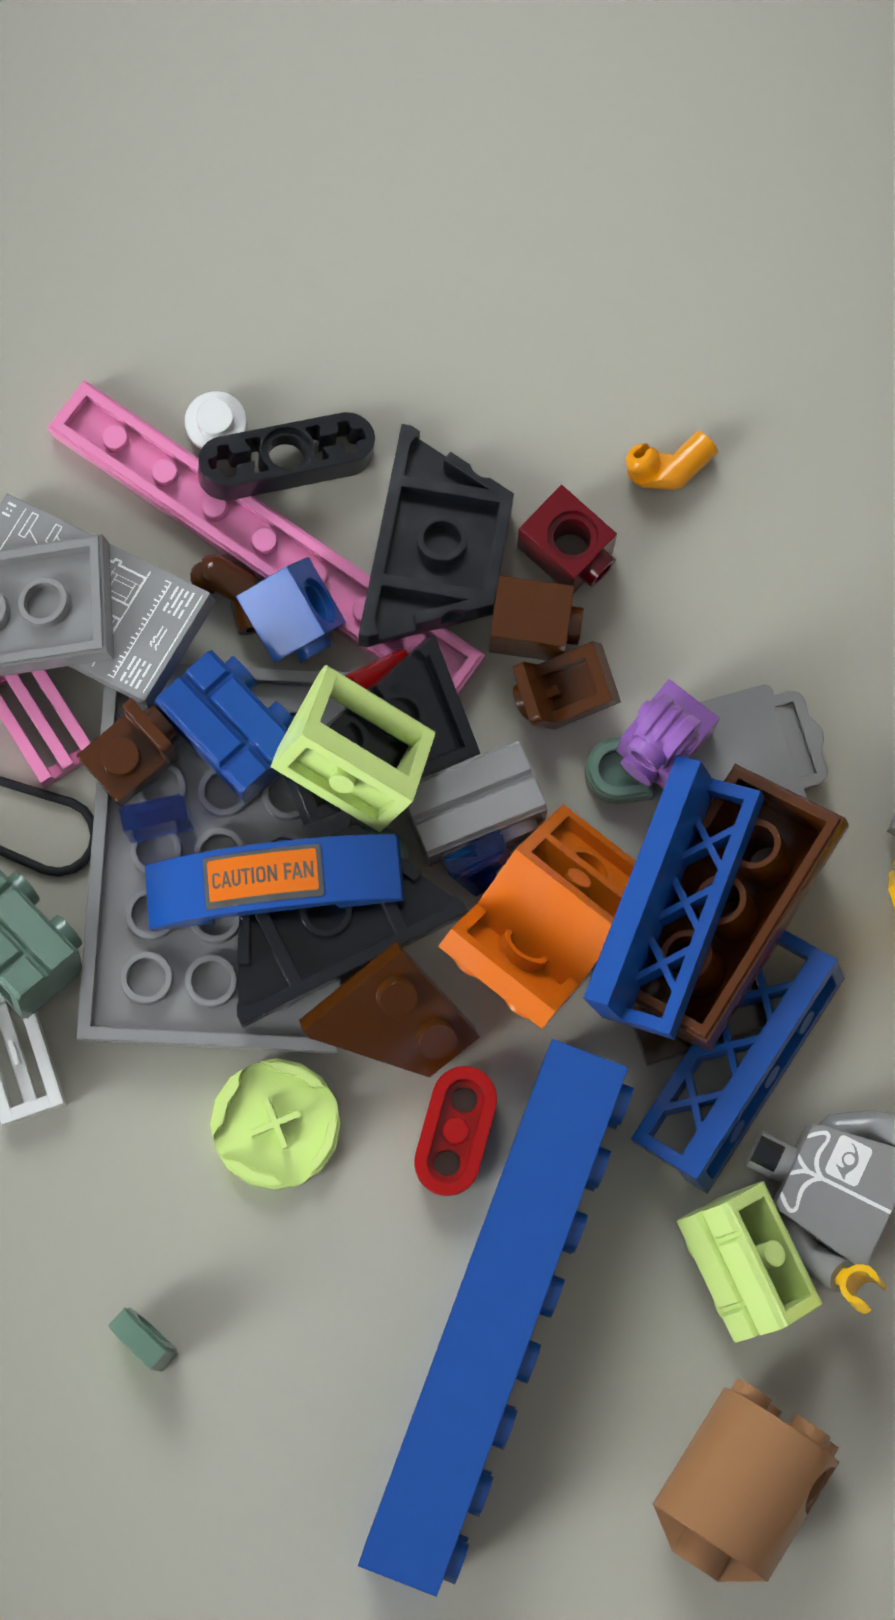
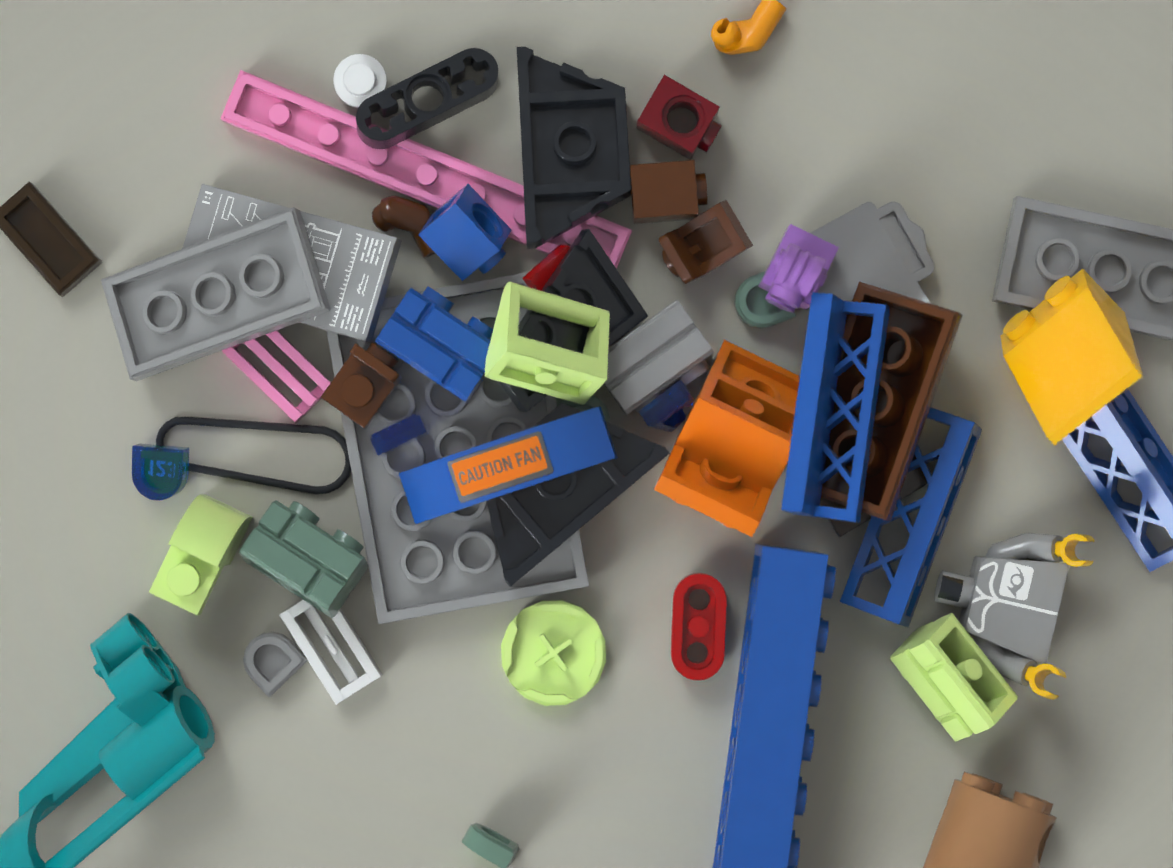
camera: 10 degrees left, 10 degrees up
(392, 1016) = (627, 549): reddish brown wing -> none

